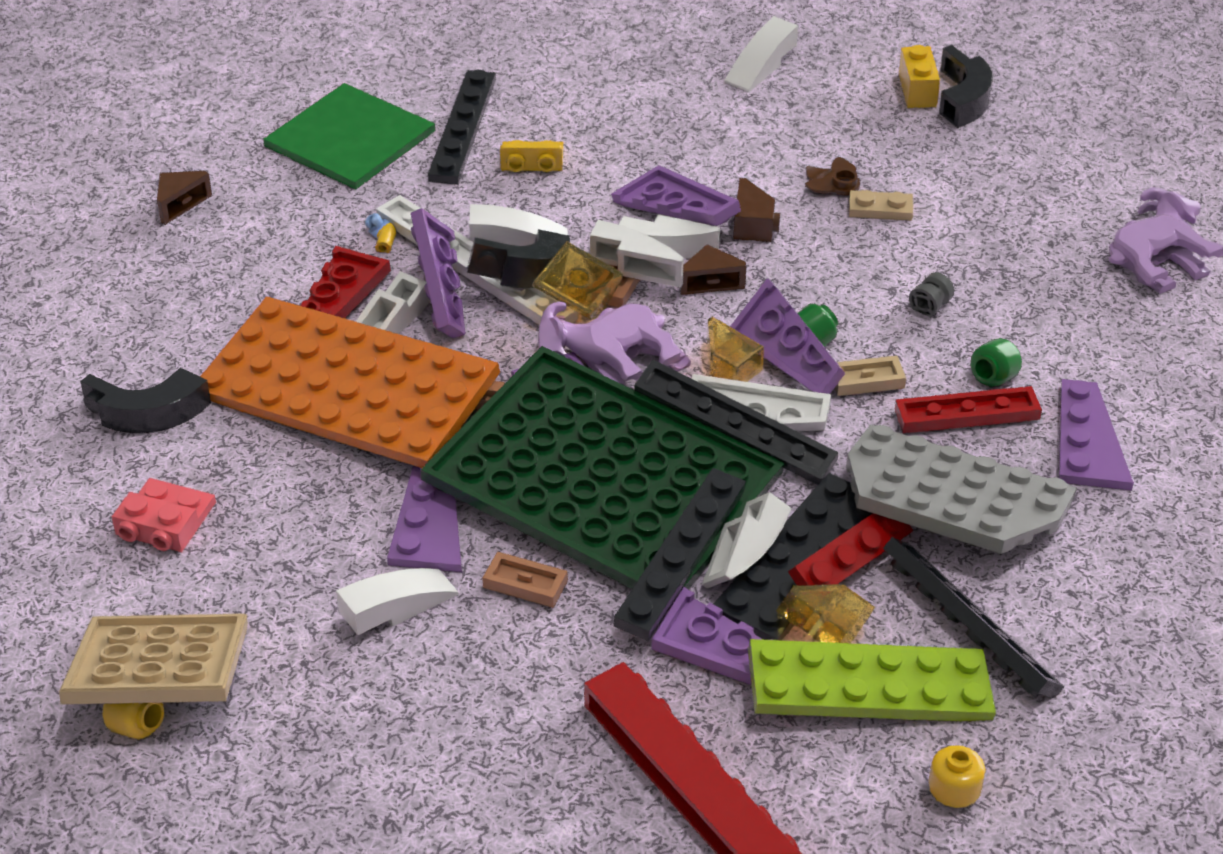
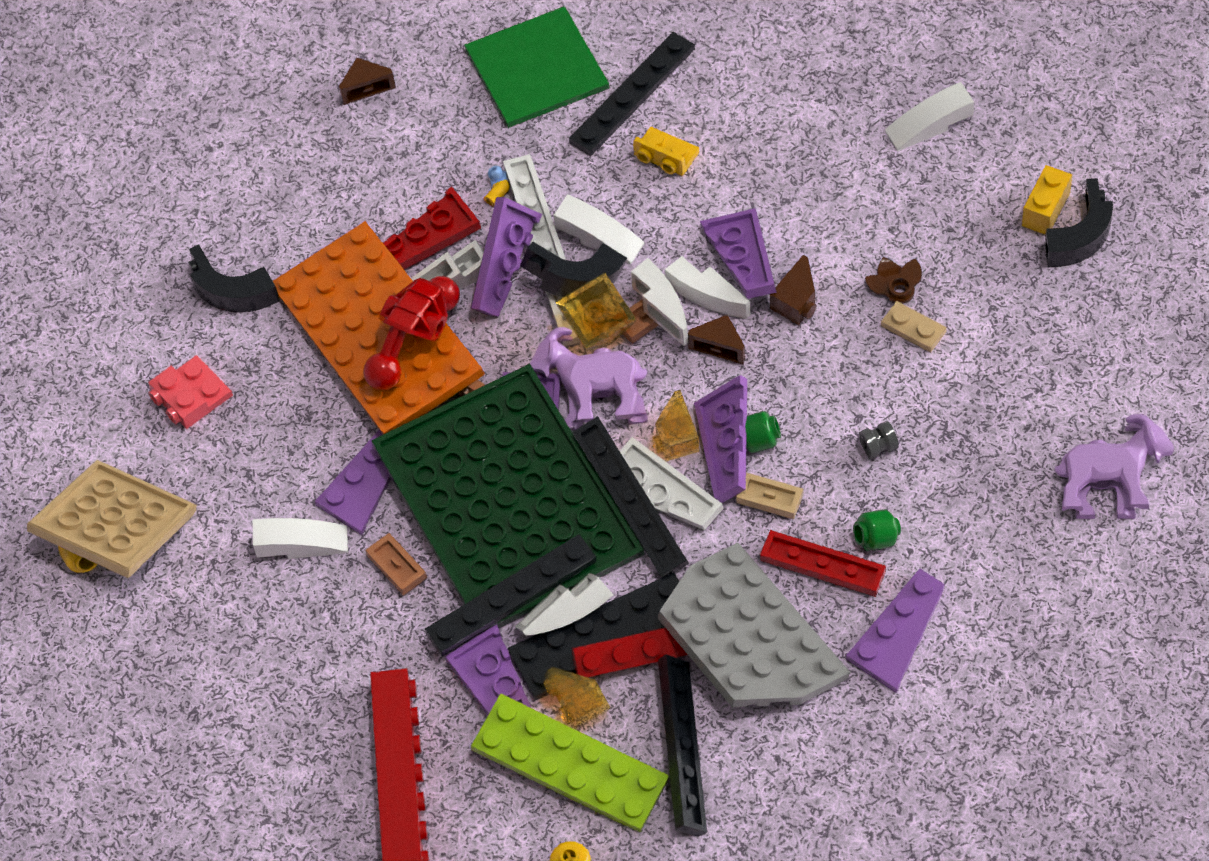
camera: 35 degrees right, 15 degrees up
(394, 331) = (414, 310): none -> red piece

